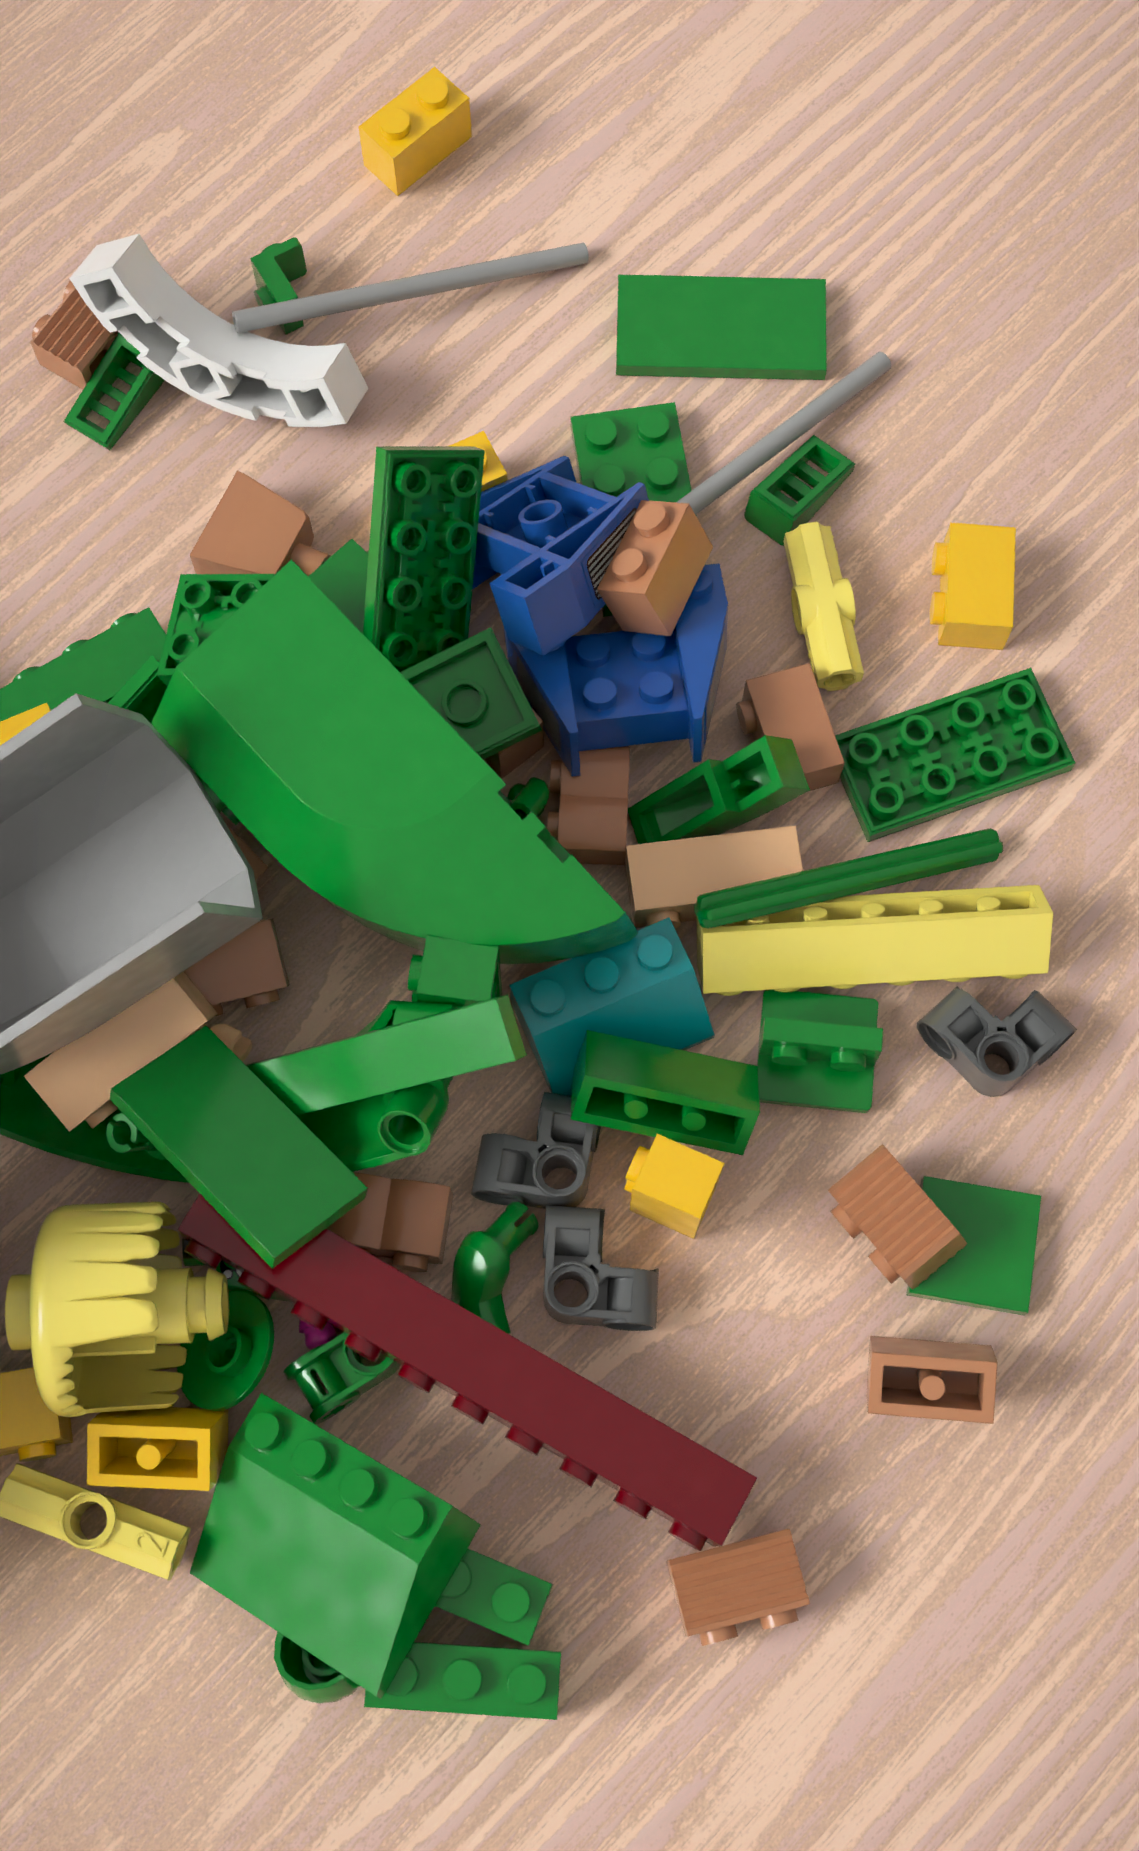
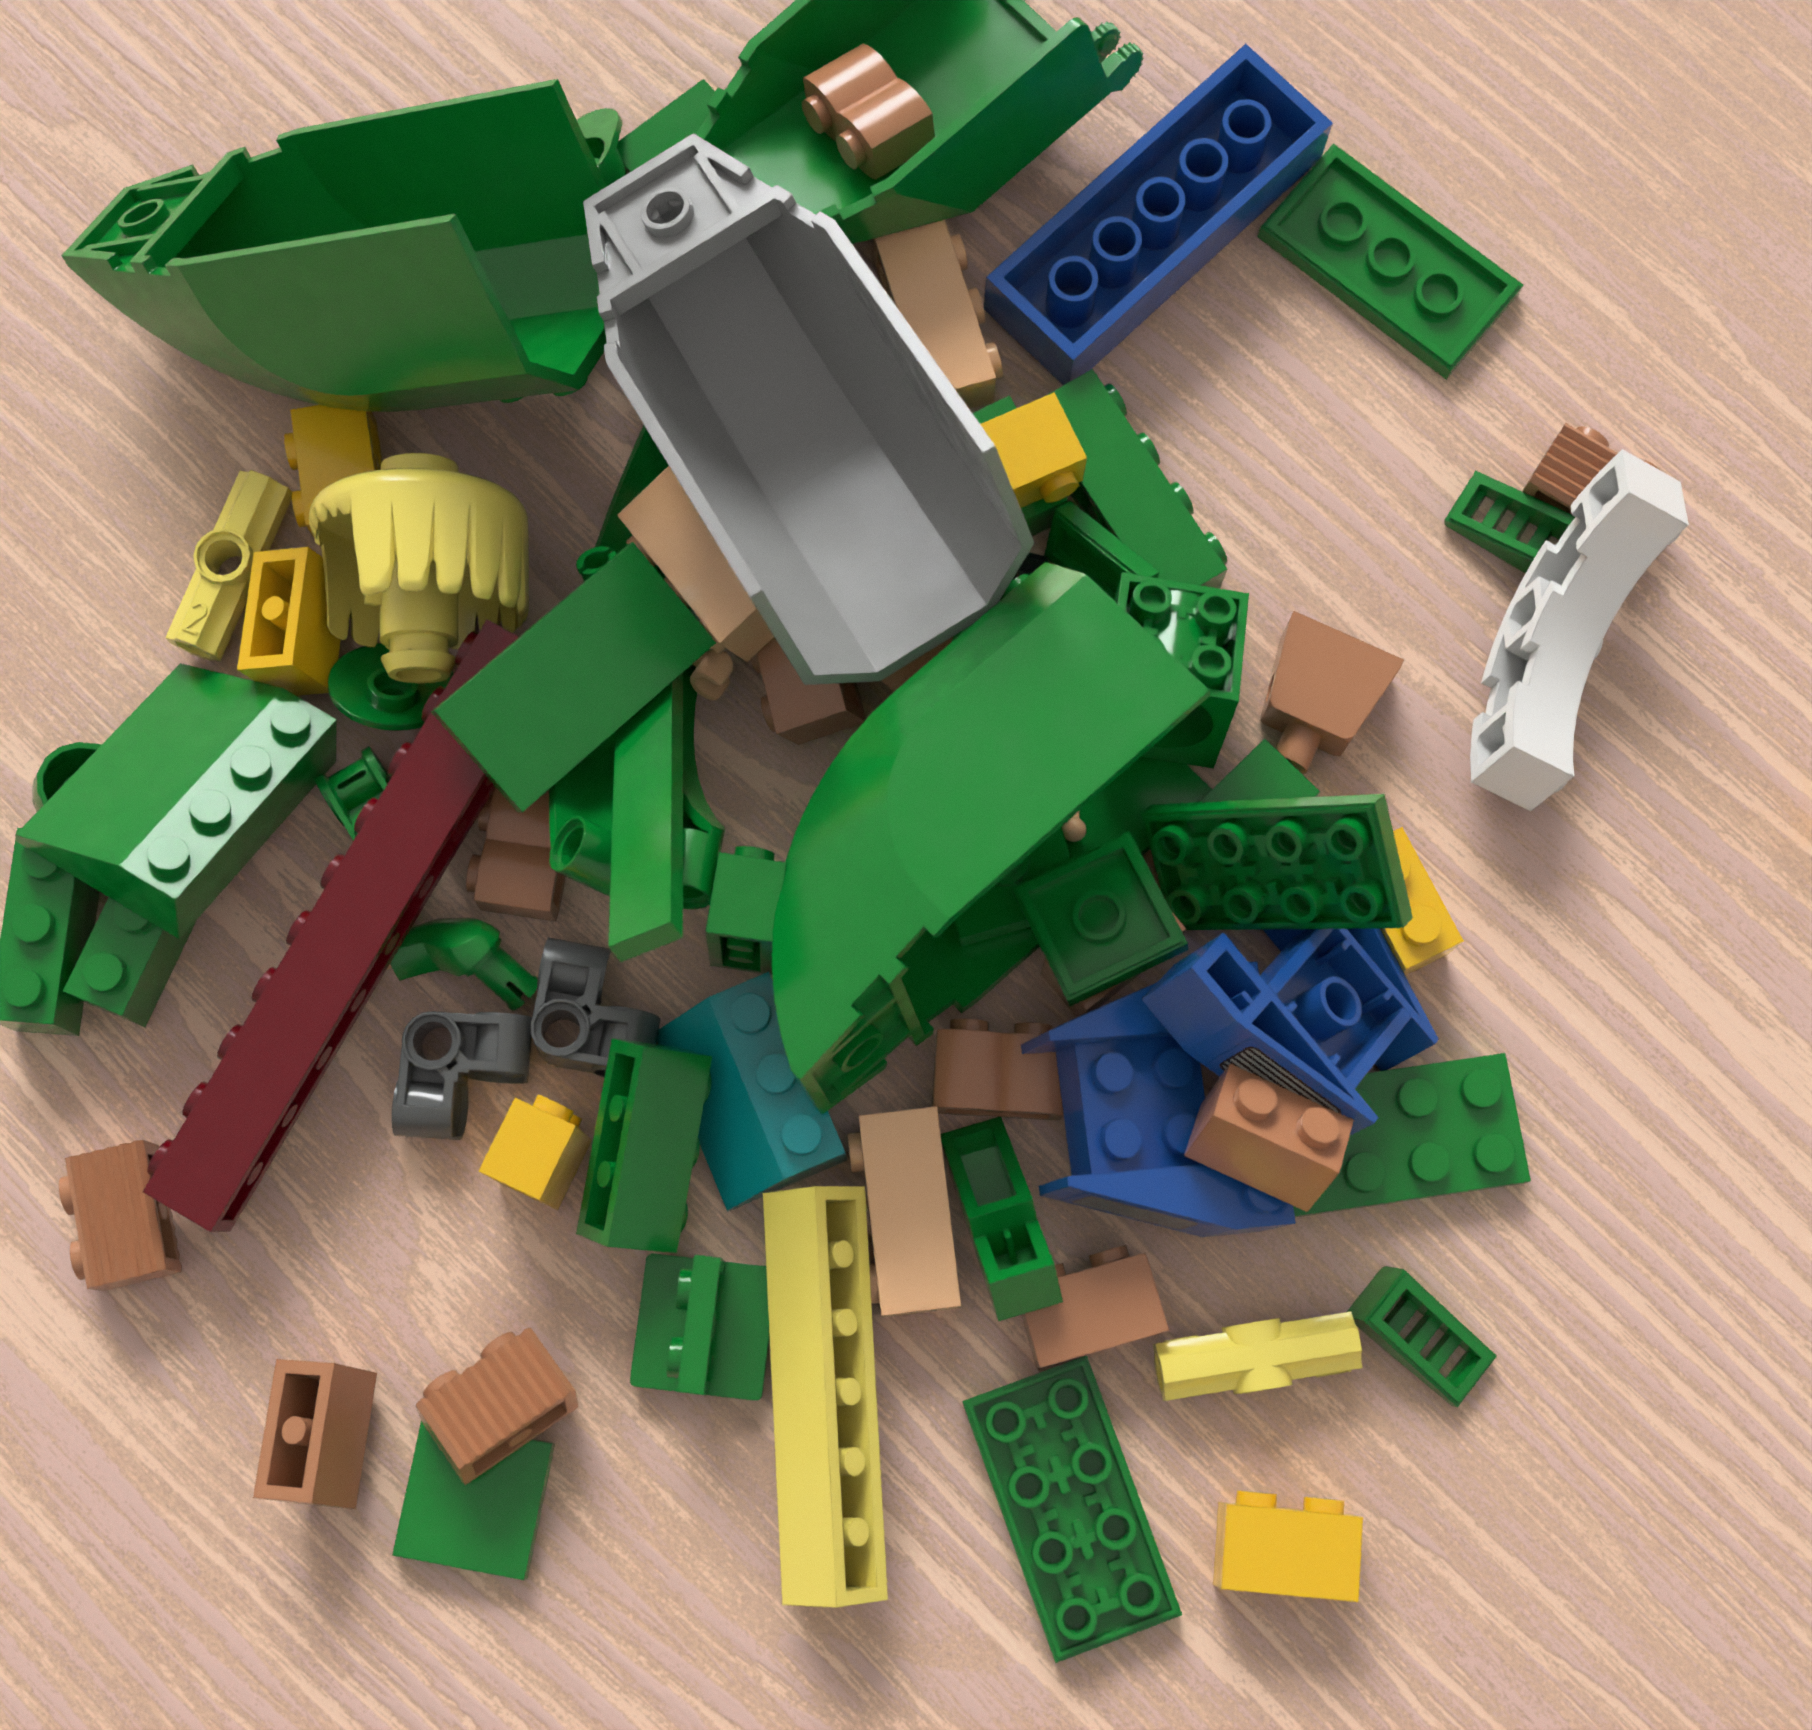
camera: 90 degrees right, 5 degrees up
(273, 272) = (1684, 692): green bracket -> none
(409, 287) = (1669, 862): light grey piece -> none
(529, 797) = (1001, 1000): green arm -> none
(721, 327) = (1644, 1245): green tile -> none
(787, 432) = (1477, 1303): light grey piece -> none
(846, 878) = (894, 1368): green axle -> none
(966, 1032) = (714, 1576): dark grey piece -> none

